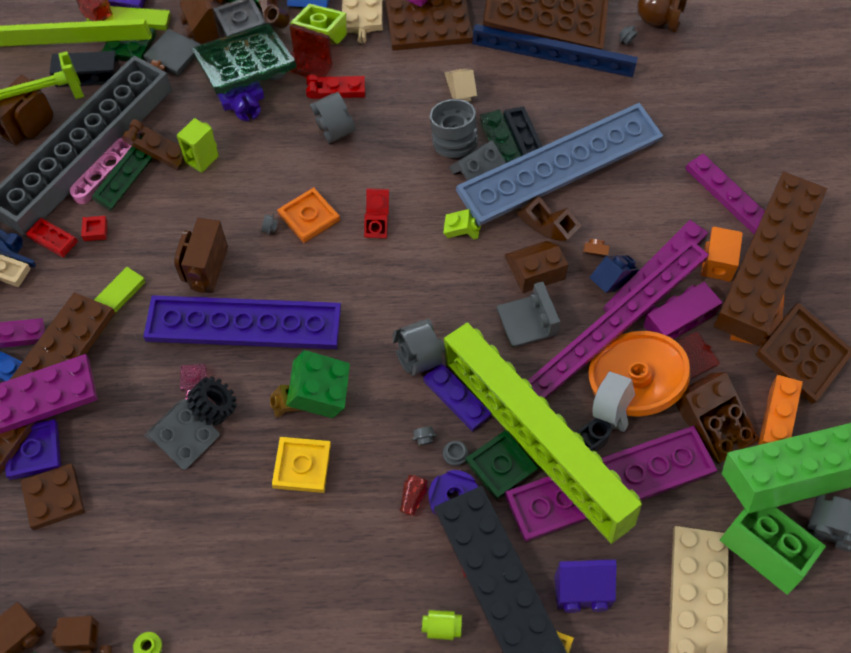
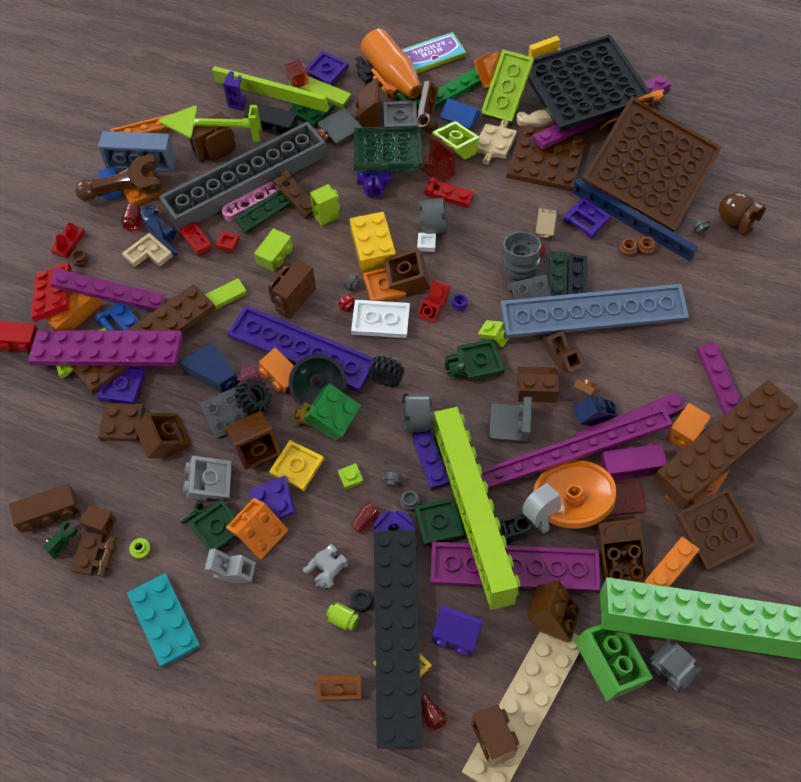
camera: 25 degrees right, 0 degrees up
(24, 49) = (233, 92): none -> dark purple hinge
(114, 492) = (162, 434): none -> reddish brown slope
(141, 387) = (210, 368): none -> dark blue slope
(157, 219) = (273, 250): none -> lime brick
(197, 524) = (207, 478): none -> light grey plate
(201, 571) = (196, 512): none -> dark green hand
(229, 359) = (276, 369): none -> orange brick
(235, 453) = (253, 440): none -> reddish brown slope
(235, 579) = (212, 524): none -> dark green plate
(268, 340) = (306, 369): none -> black dish
(273, 170) = (371, 241): none -> yellow brick
(274, 250) = (346, 303): none -> red plate
(277, 623) = (230, 568): none -> light grey brick
(289, 559) = (257, 527): none -> orange bracket
(292, 520) = (276, 496): none -> dark purple plate
(323, 255) = (380, 318): none -> white plate
(331, 190) = (407, 272): none -> reddish brown slope
(336, 150) = (426, 242): none -> white plate
(360, 312) = (386, 371): none -> black tyre
(372, 452) = (350, 476): none -> lime plate
(394, 569) = (326, 563): none -> light grey animal
(406, 200) = (459, 298): none -> dark purple plate
(453, 595) = (361, 600): none -> black tile
(455, 264) = (475, 361): none -> dark green plate
(505, 60) = (589, 213): none -> dark purple plate
(562, 82) = (631, 244): none -> dark orange plate
(580, 74) = (646, 245): none -> dark orange plate
(682, 515) = (554, 611): none -> reddish brown slope

